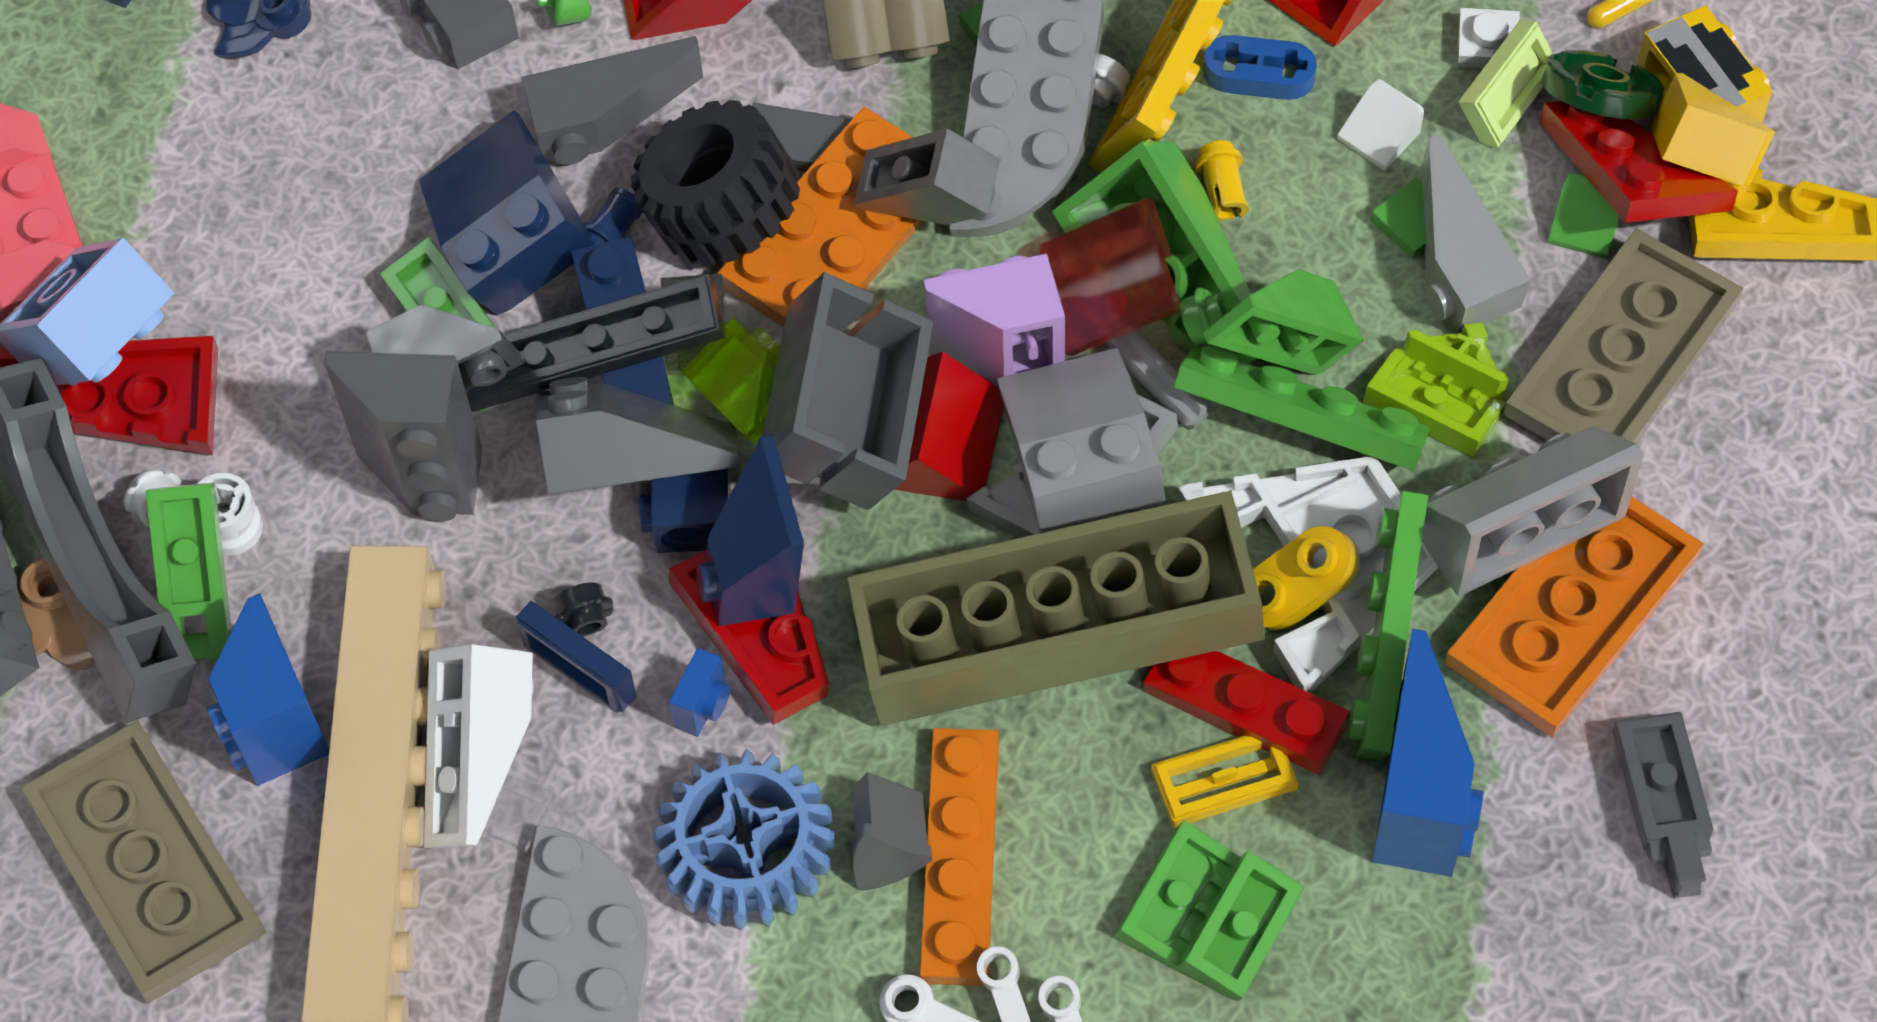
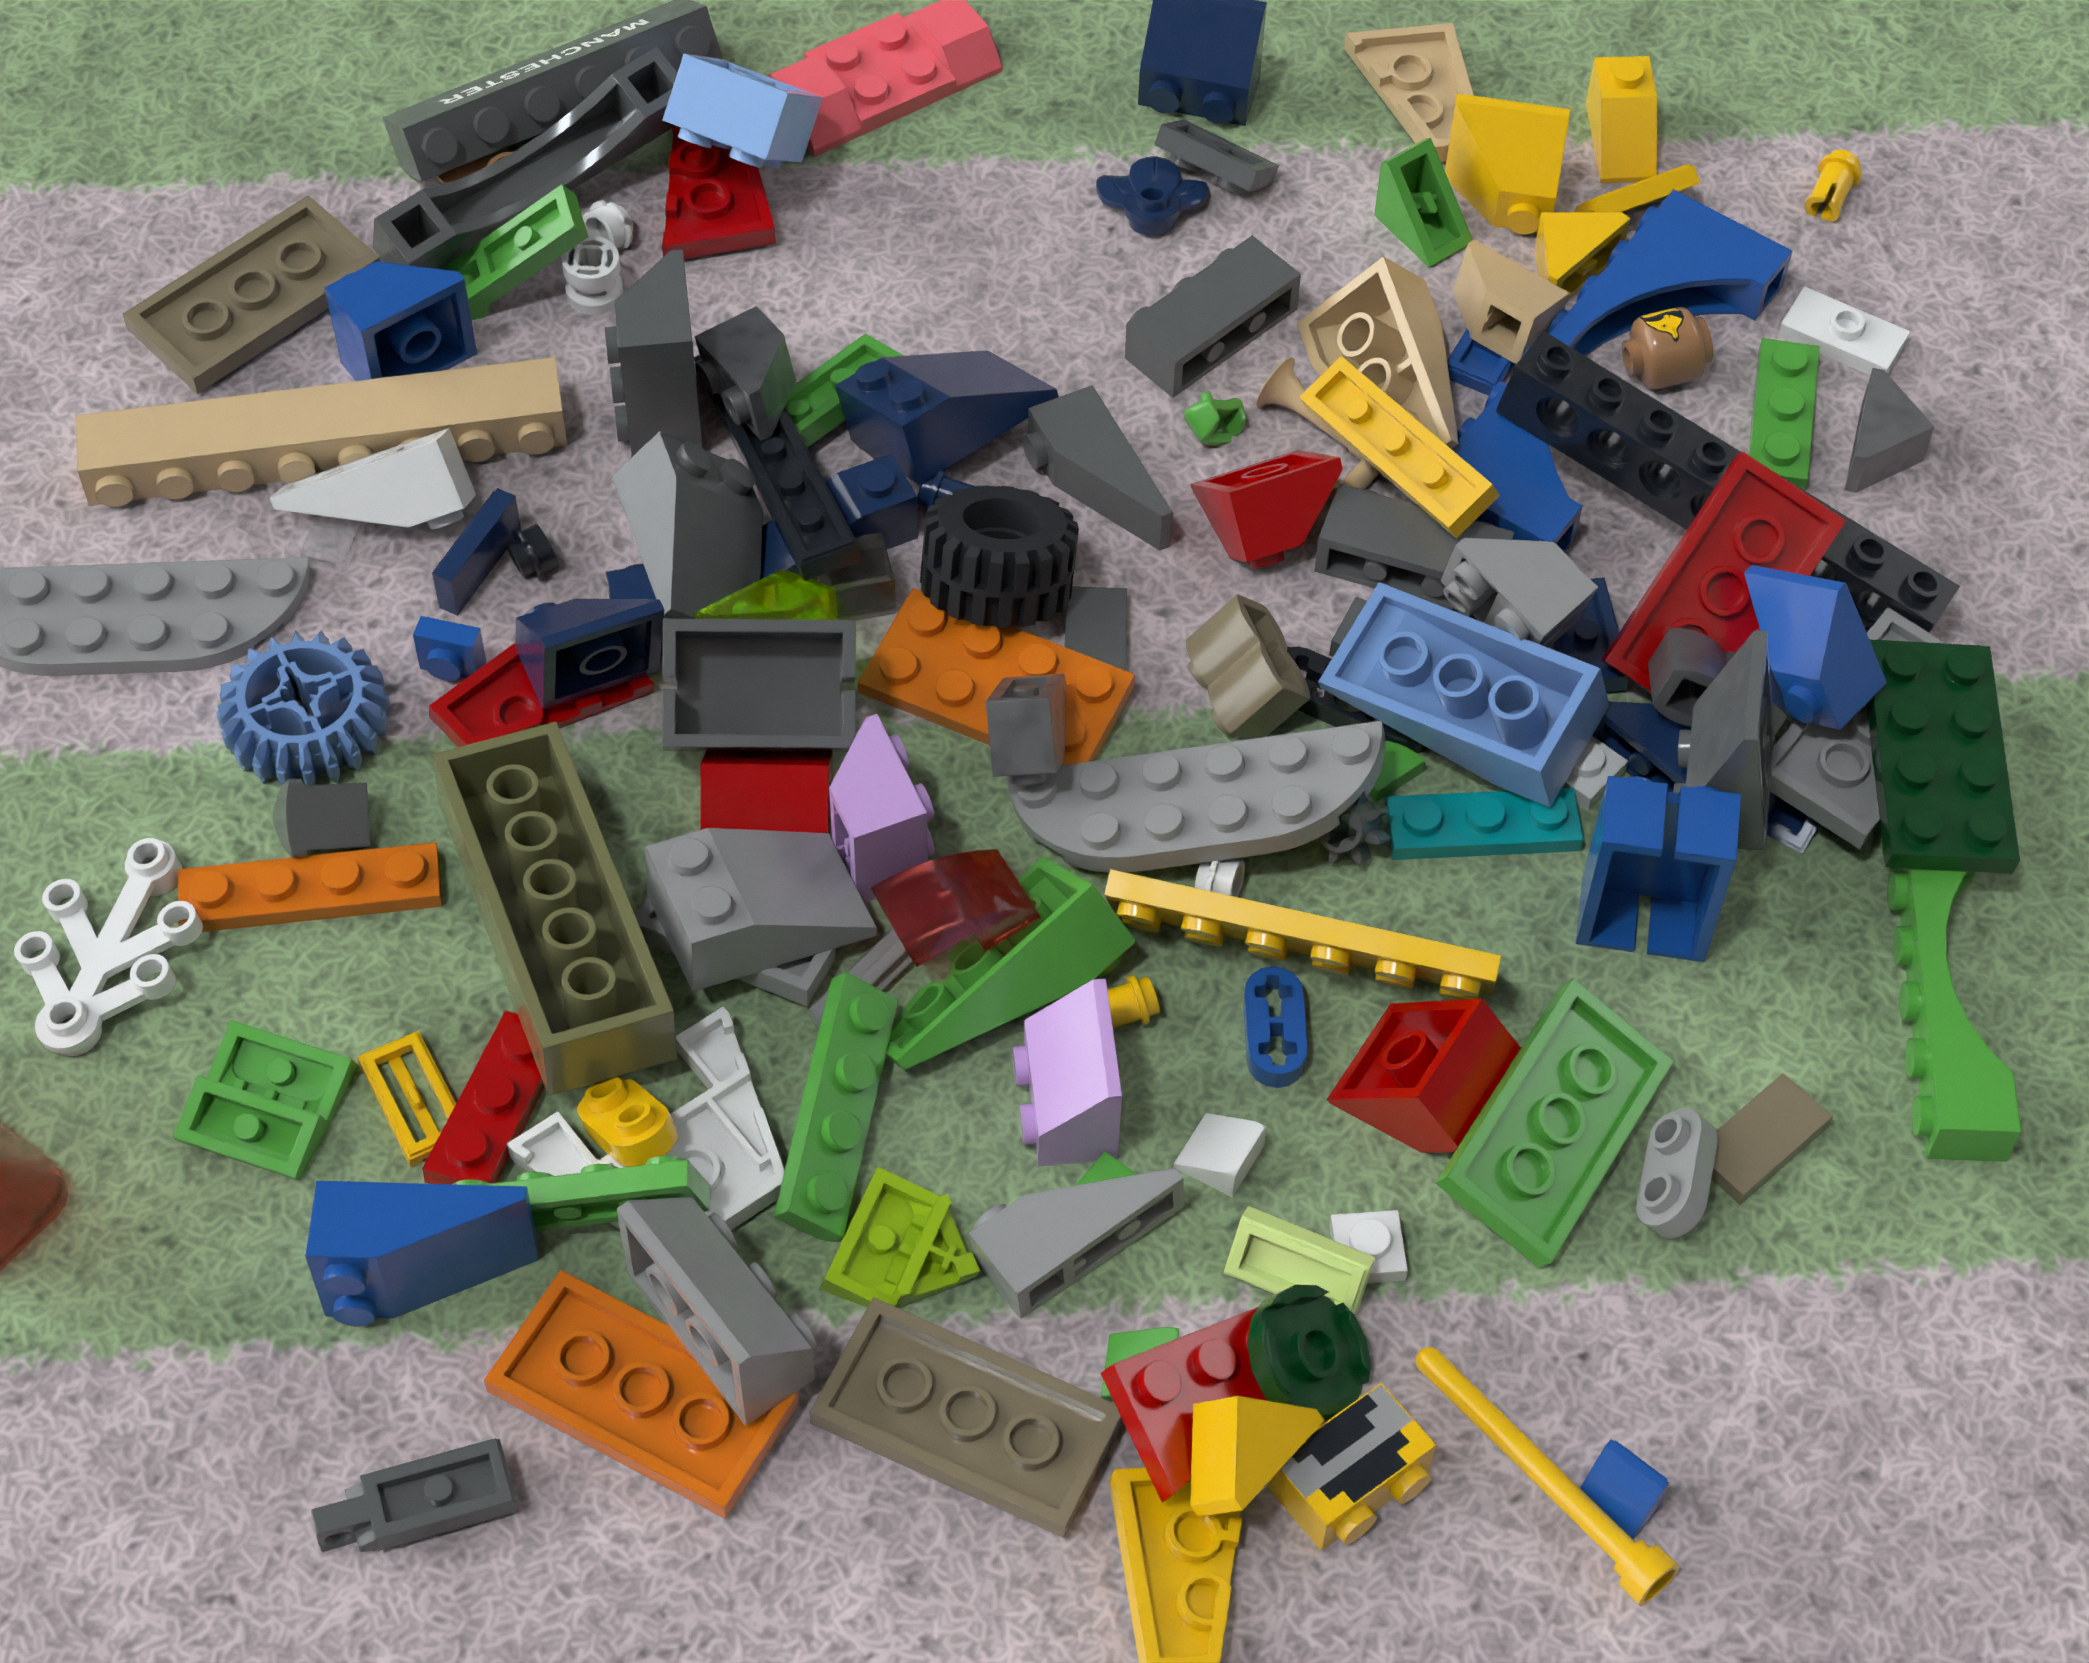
camera: 75 degrees right, 5 degrees down
(1201, 312) = (914, 980): bright green plate -> none
(1291, 324) = (926, 1075): bright green slope -> none
(1312, 206) = (1070, 1079): none -> lavender slope

